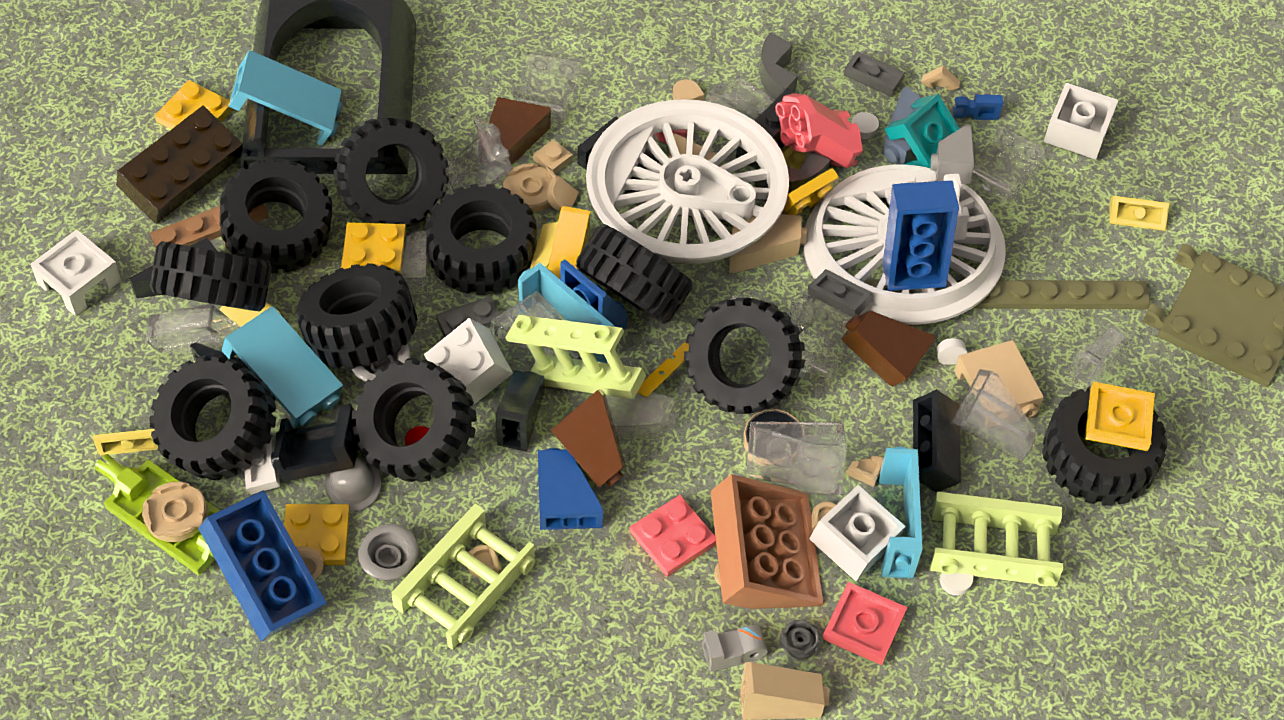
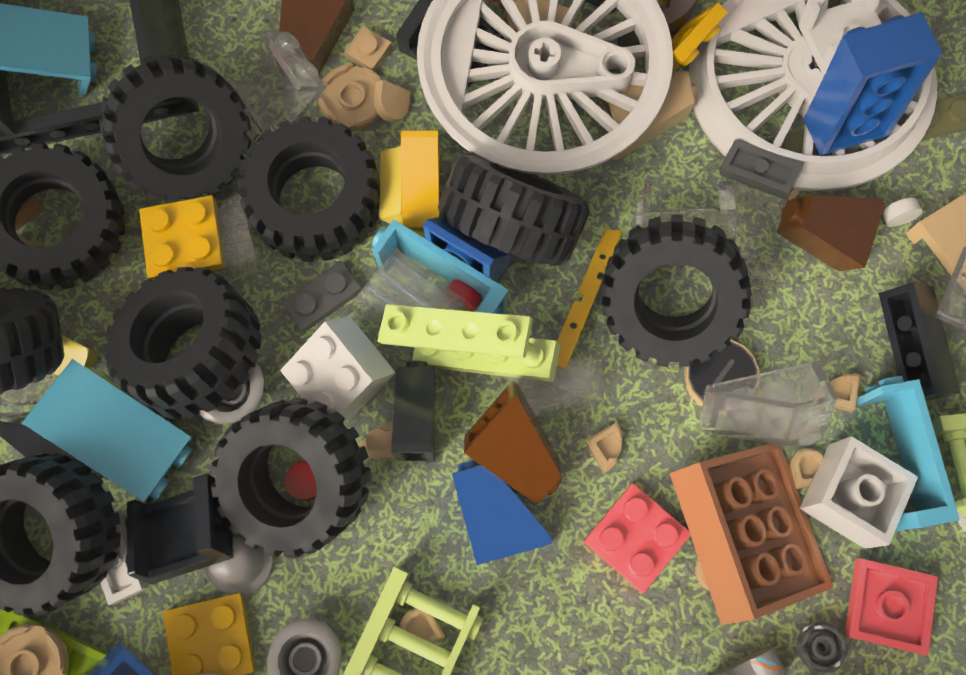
camera: 10 degrees left, 20 degrees up
(486, 429) = (379, 442): none -> tan tile
(666, 467) = (606, 446): none -> tan tile

